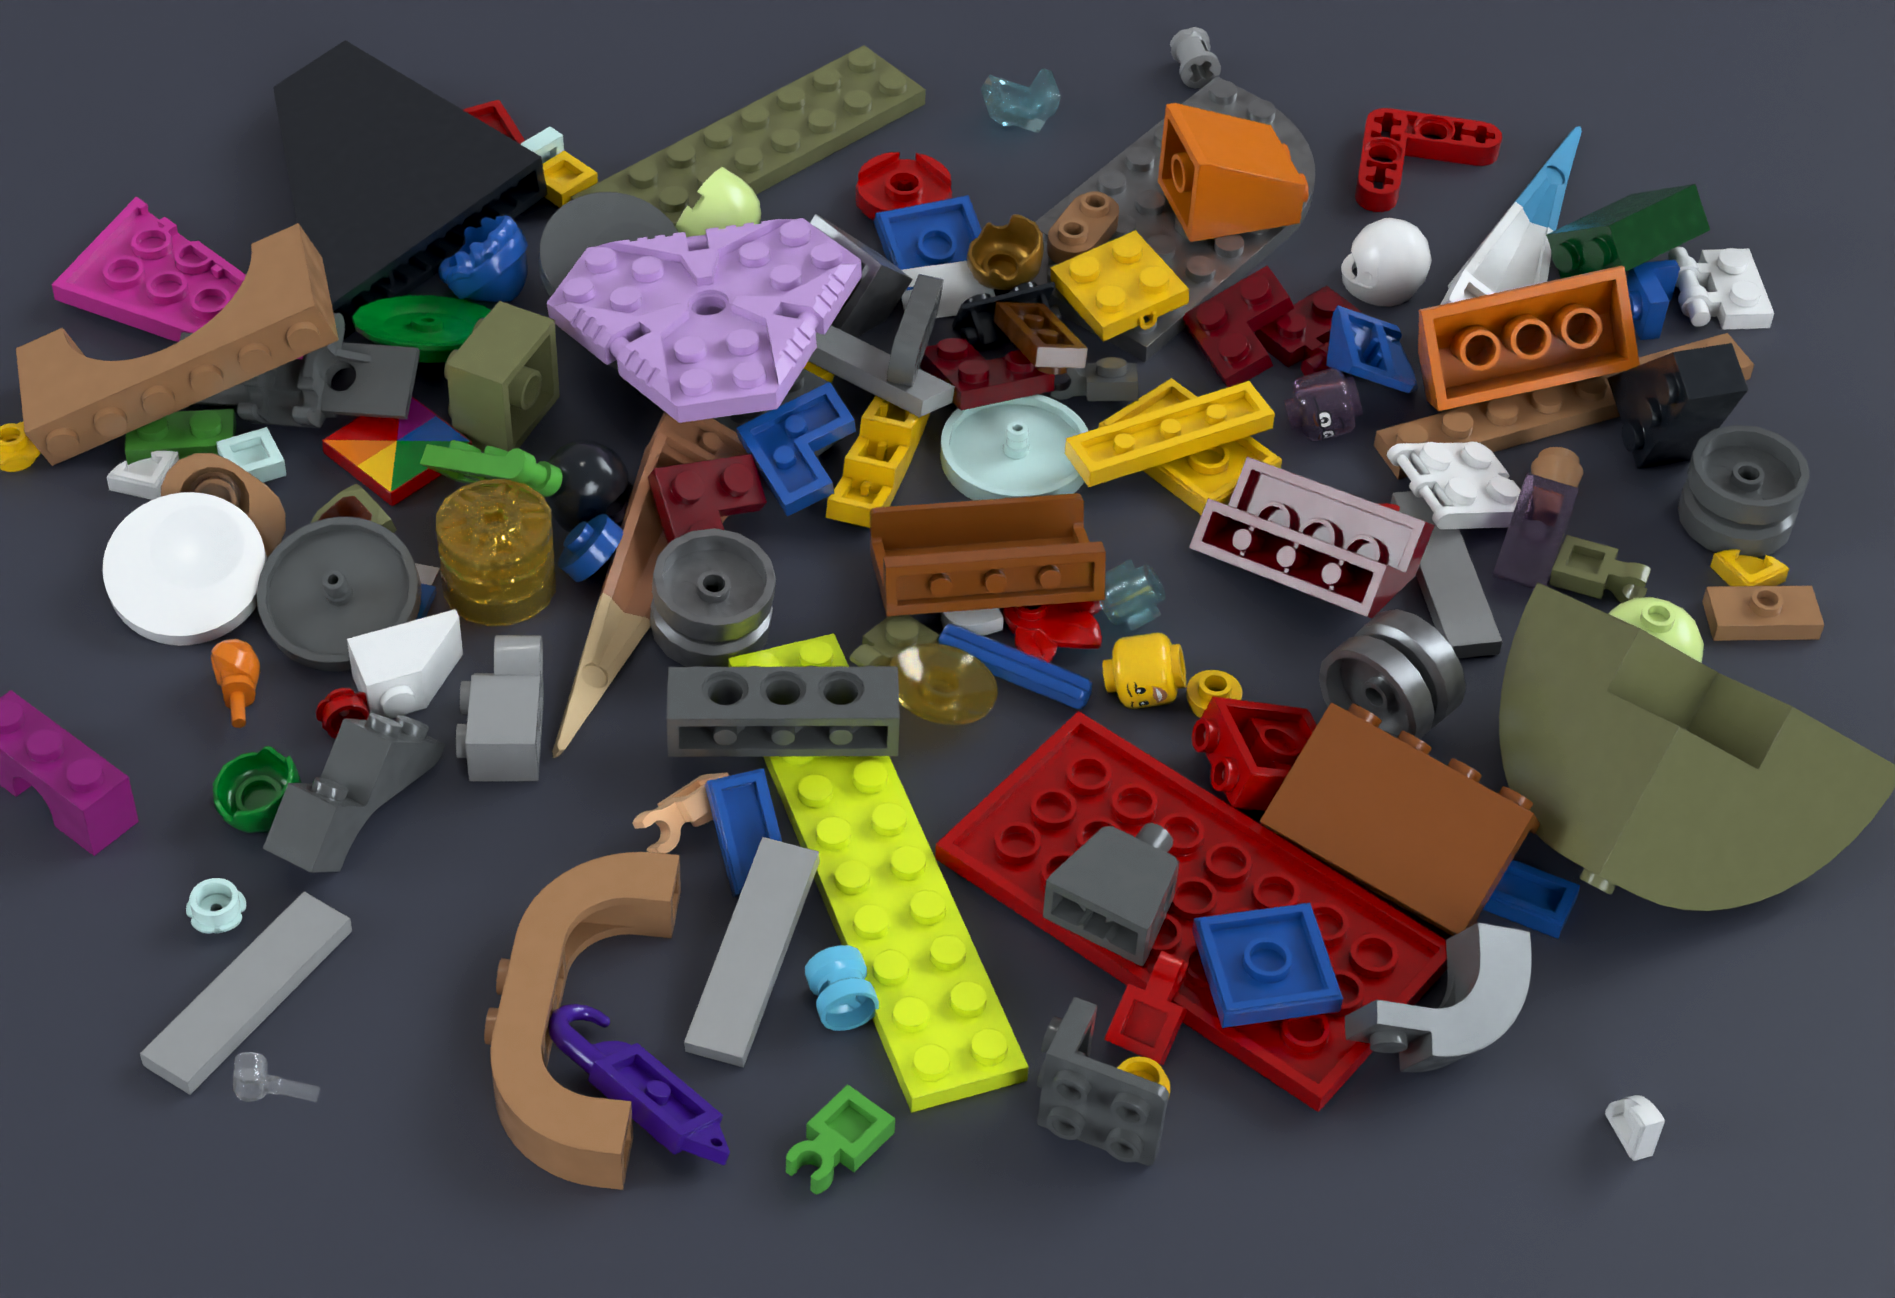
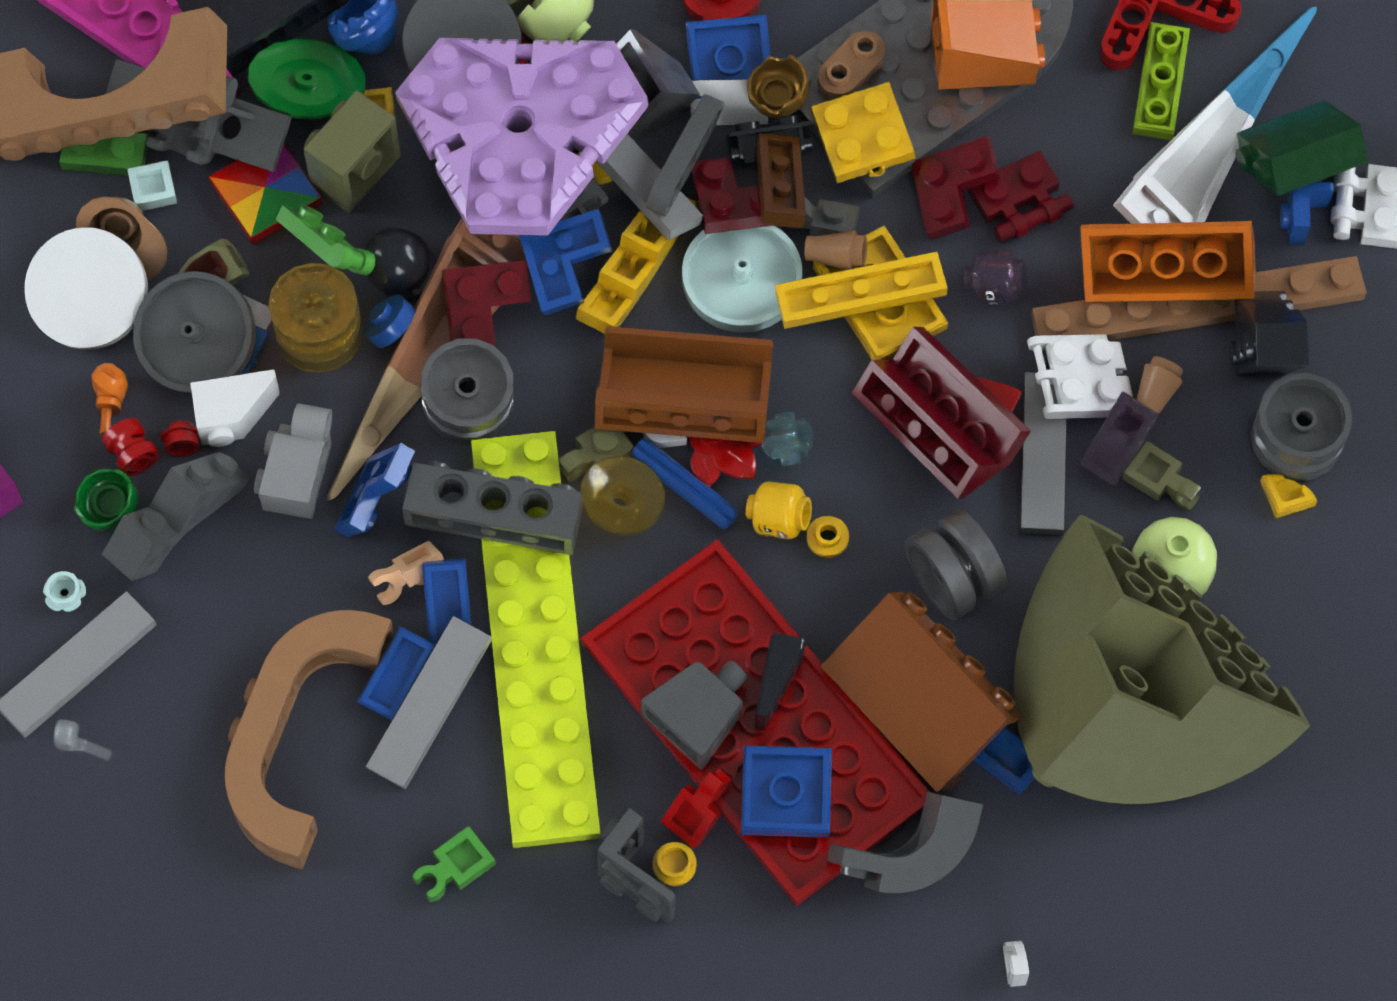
camera: 15 degrees right, 20 degrees up
(143, 476) = (73, 185): white tile -> none
(272, 722) = (131, 448): none -> red wheel
(616, 716) = (379, 475): none -> blue plate
(630, 1073) = (327, 798): dark purple plate -> none
(697, 927) = (396, 673): none -> blue tile
(837, 978) = (484, 743): medium azure wheel -> none
(1126, 397) = (838, 250): none -> medium nougat cone
(1208, 828) = (781, 664): none -> black slope
(1251, 747) = (838, 597): red plate -> none
(1369, 350) = (1049, 234): blue slope -> none
(1389, 261) = (1095, 138): white helmet -> none
(1437, 209) = (1156, 97): none -> lime tile
(1762, 613) = (1282, 536): medium nougat plate -> none

